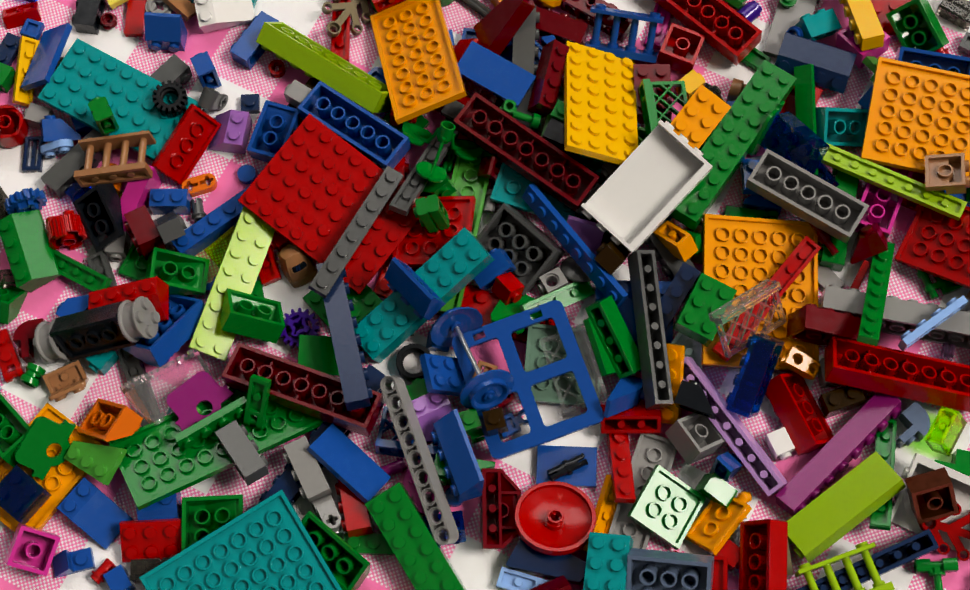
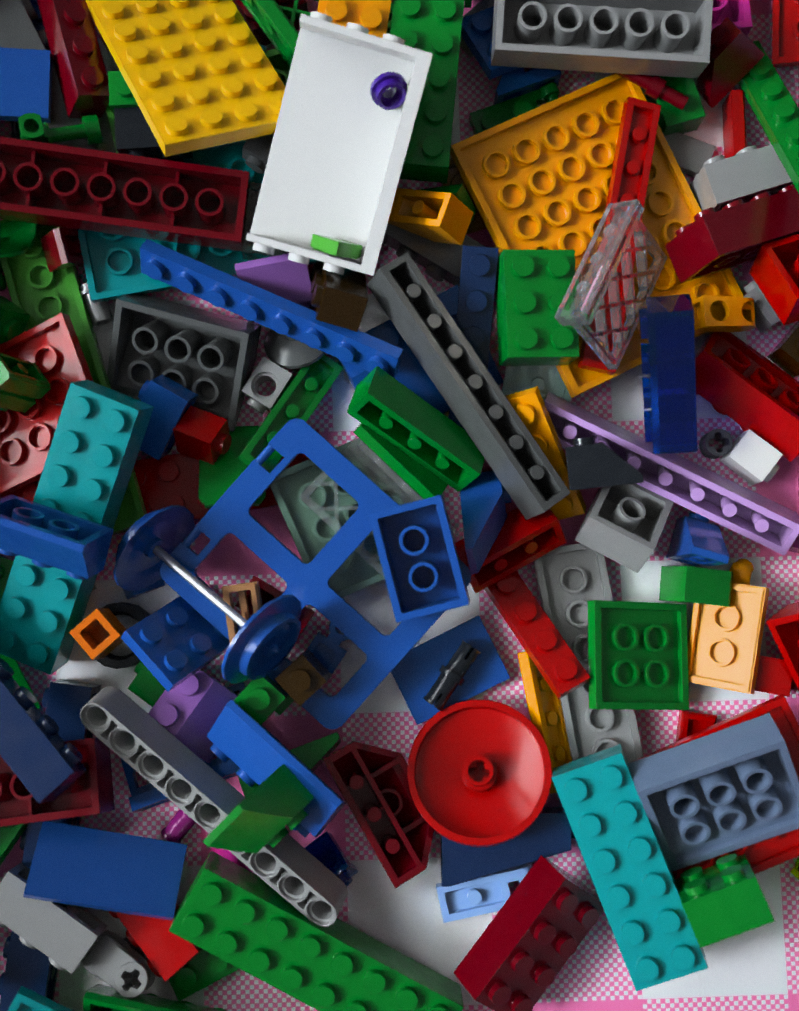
camera: 30 degrees left, 15 degrees up
(408, 351) = (99, 633): none -> orange brick
(442, 466) = (263, 815): none -> green slope
(582, 392) = (419, 558): none -> blue brick
(622, 231) = (336, 247): none -> bright green tile
(684, 176) = (390, 98): none -> dark purple plate
(769, 423) = (720, 436): none -> dark grey axle

